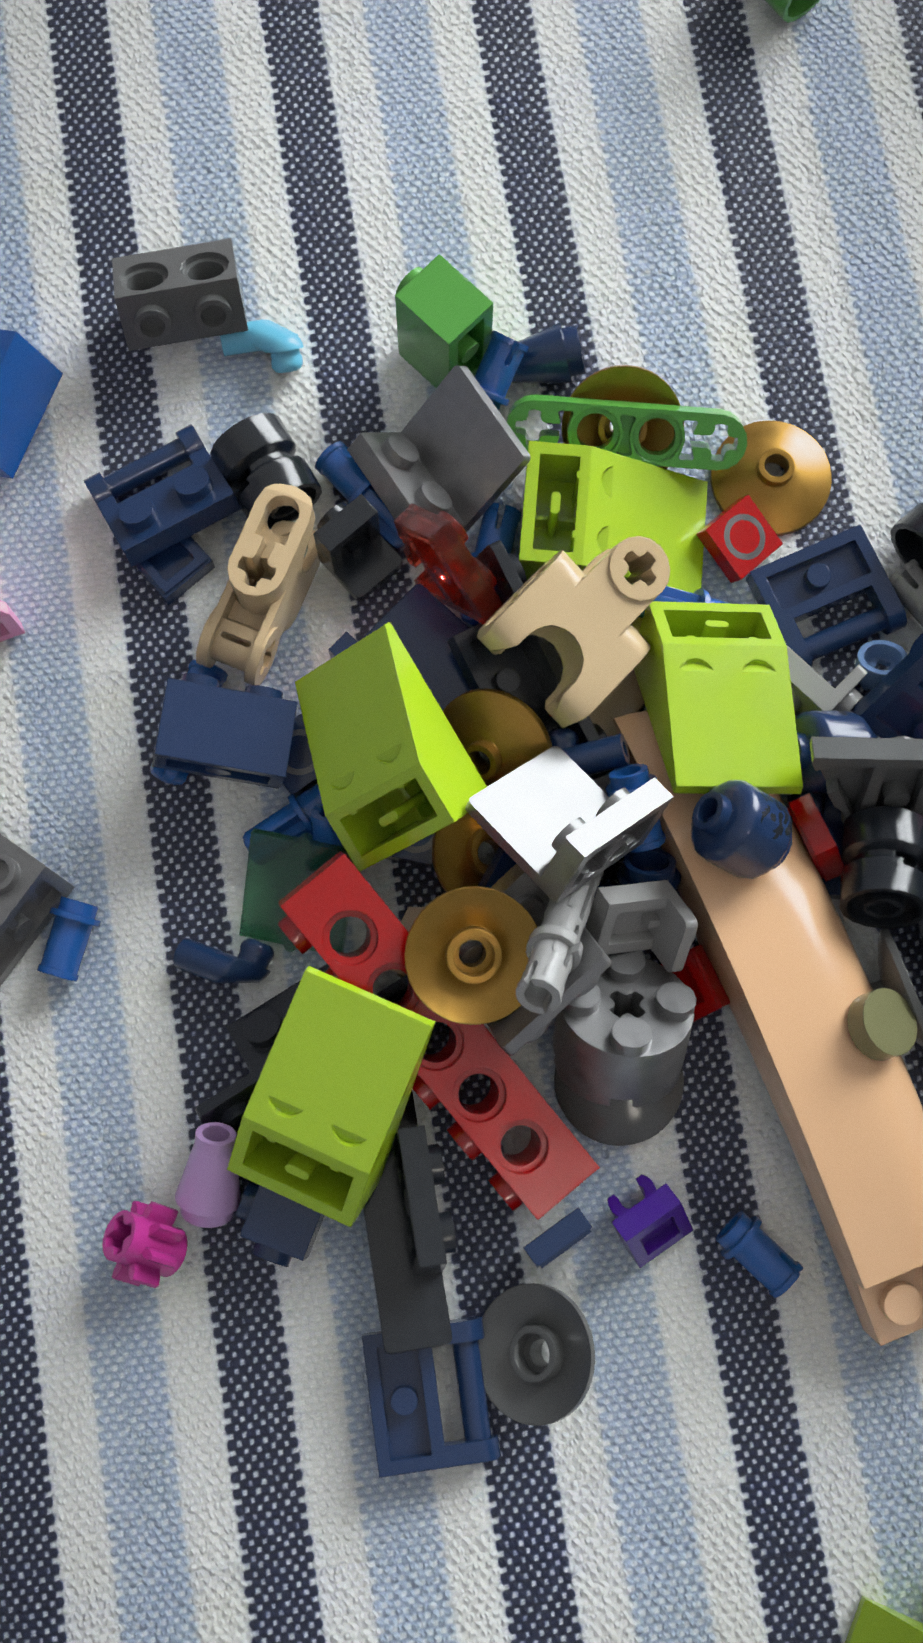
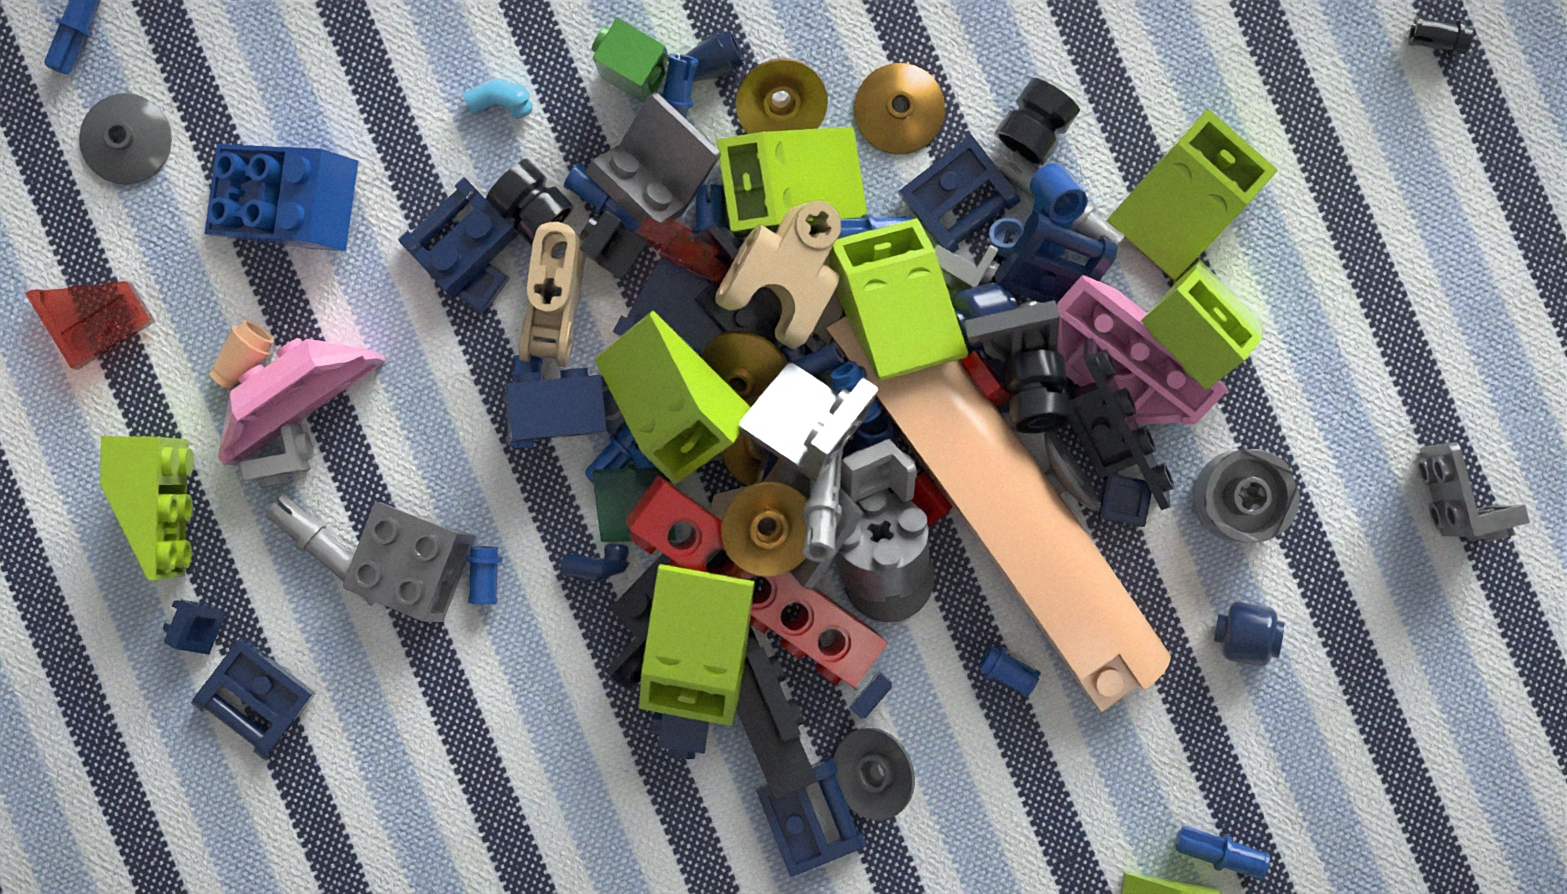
camera: 15 degrees left, 10 degrees up
(144, 1244) = (595, 767): dark pink gear -> none
(179, 294) = (428, 79): dark grey brick -> none
(207, 1190) = (626, 722): lavender cone -> none
(627, 421) = (783, 100): bright green beam -> none
(650, 1224) = (932, 669): dark purple tile -> none
(739, 539) = (886, 165): red tile -> none
(741, 829) = (931, 396): dark blue head -> none
(882, 1024) = (1055, 504): olive tile -> none

